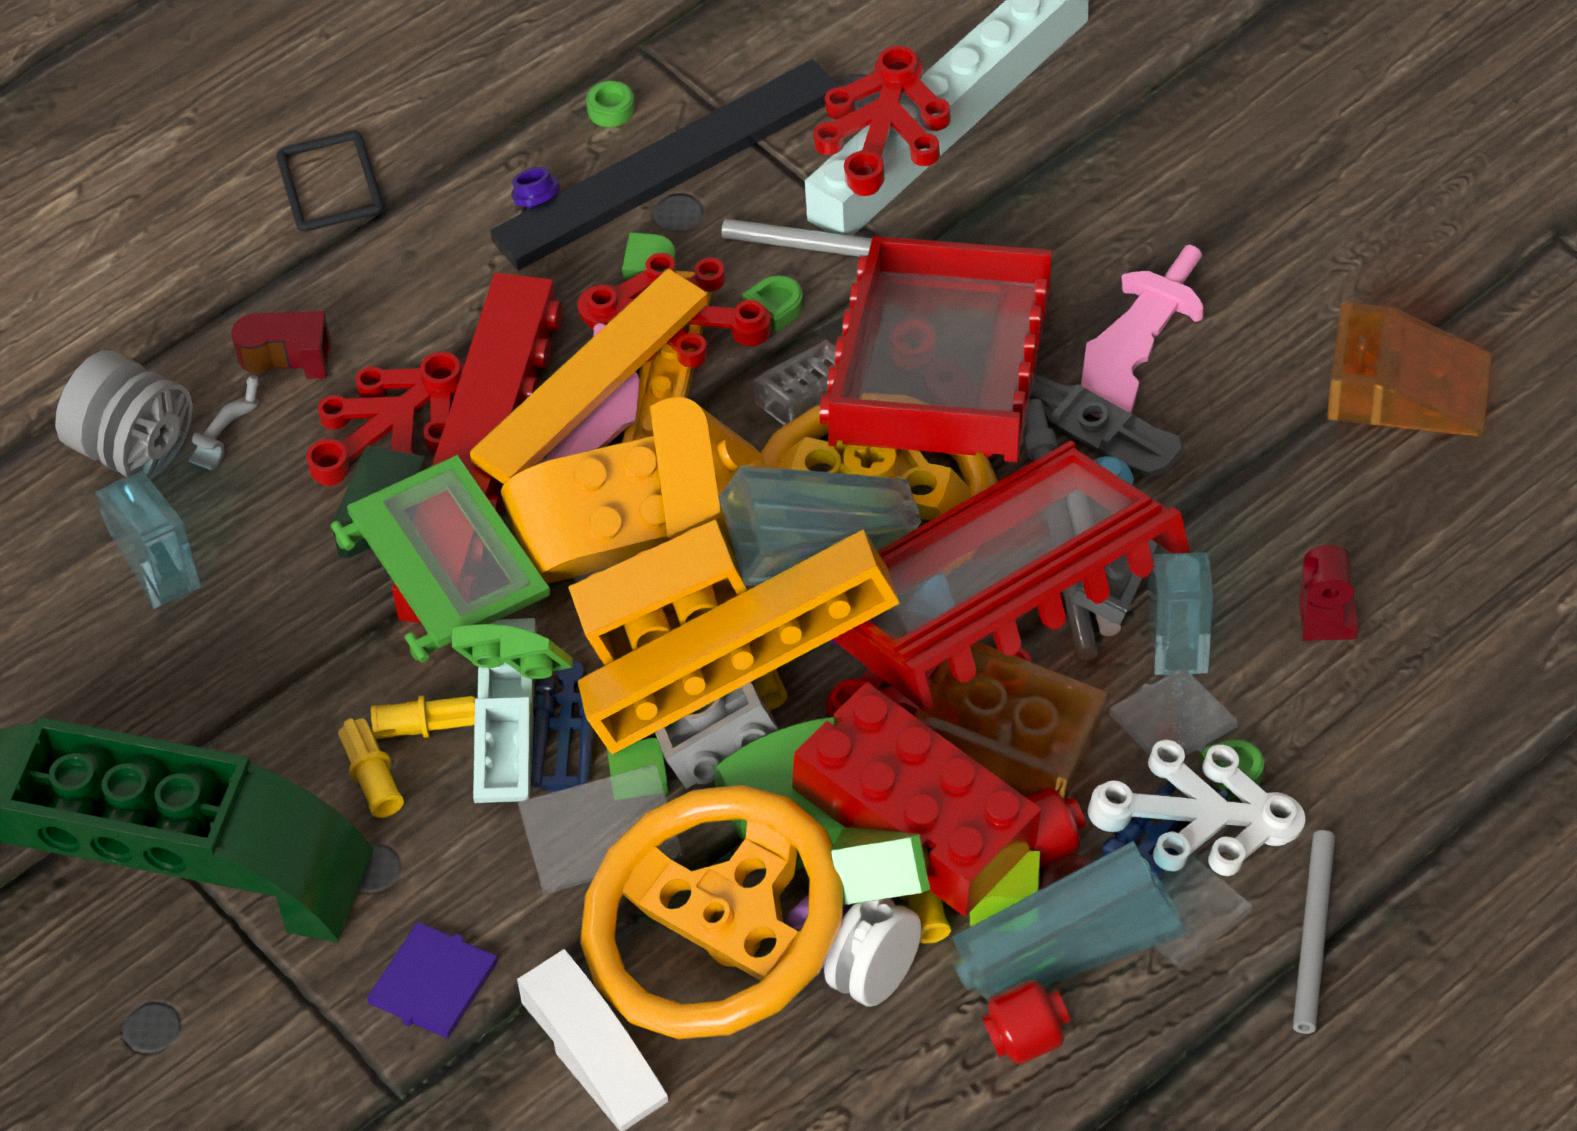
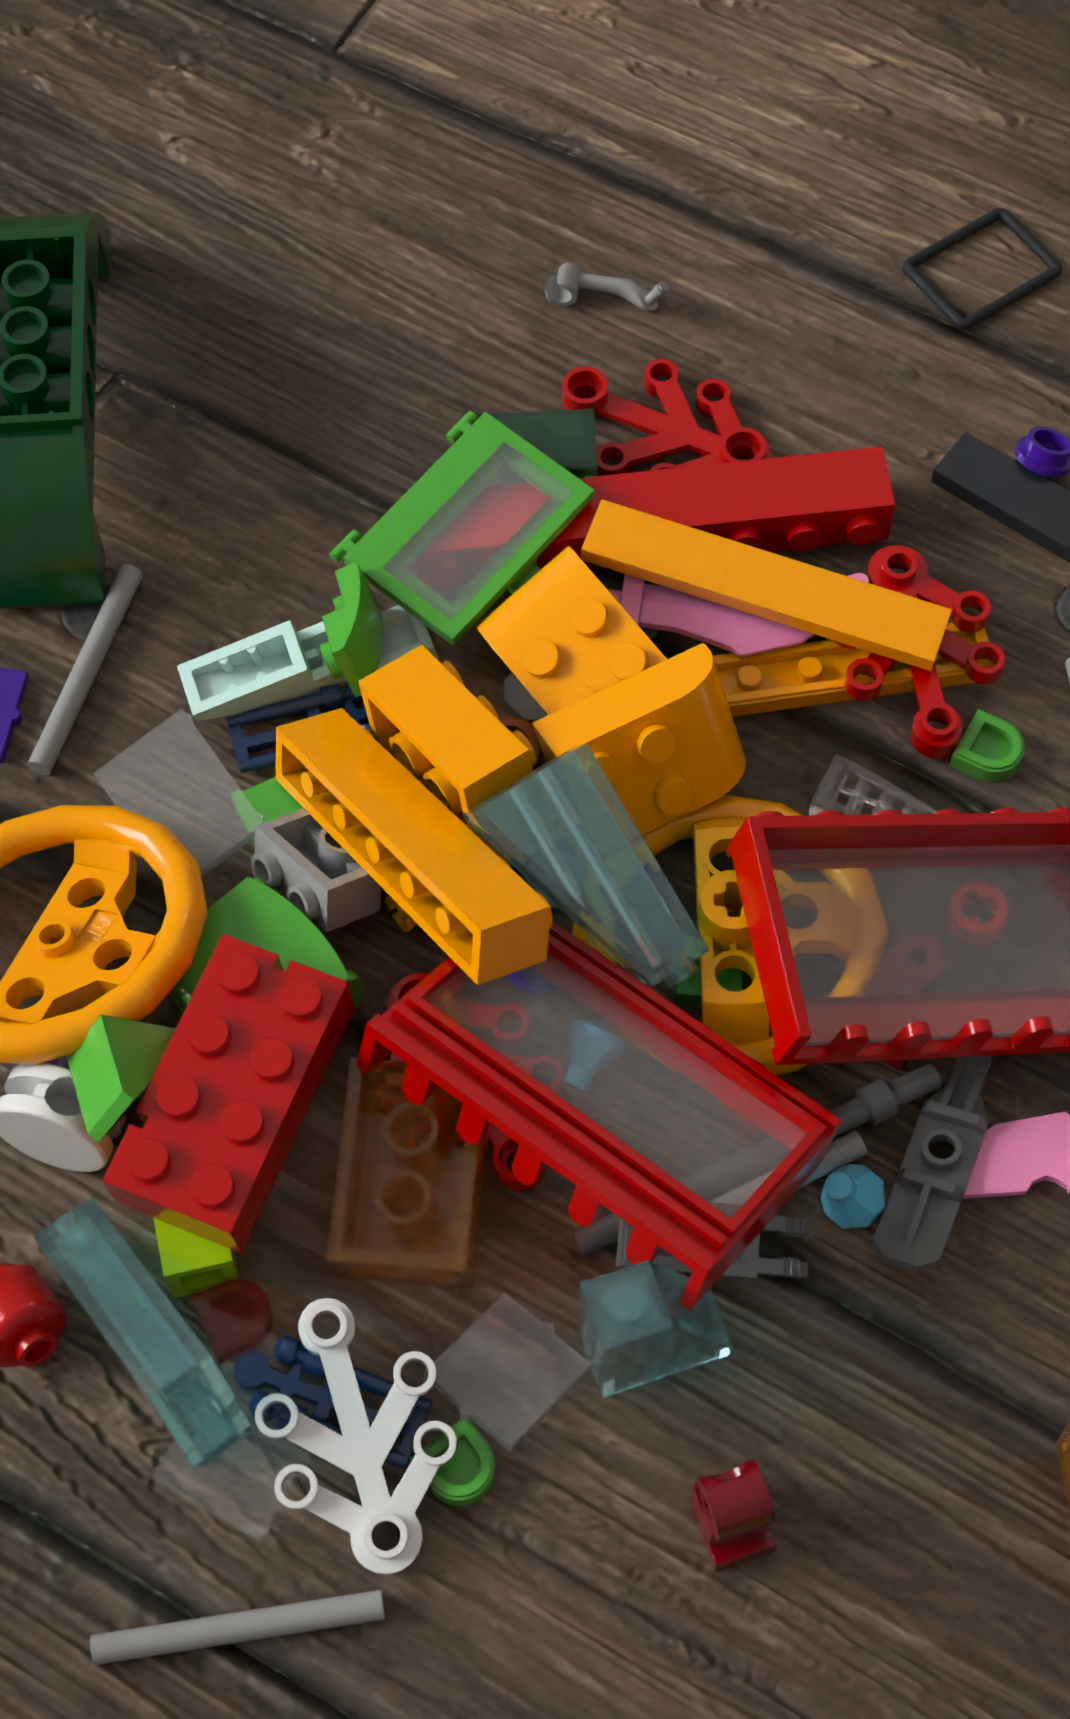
camera: 70 degrees right, 10 degrees up
(123, 415) = (555, 189): light grey wheel -> none
(149, 538) = (418, 267): clear light blue slope -> none
(283, 342) = (734, 306): dark red leg -> none
(370, 768) = (202, 563): yellow axle -> none
(421, 716) = (278, 584): yellow axle -> none
(441, 880) = (85, 670): none -> light grey bar
(640, 248) = (1006, 593): bright green tile -> none
(1057, 826) = (287, 1259): red head -> none

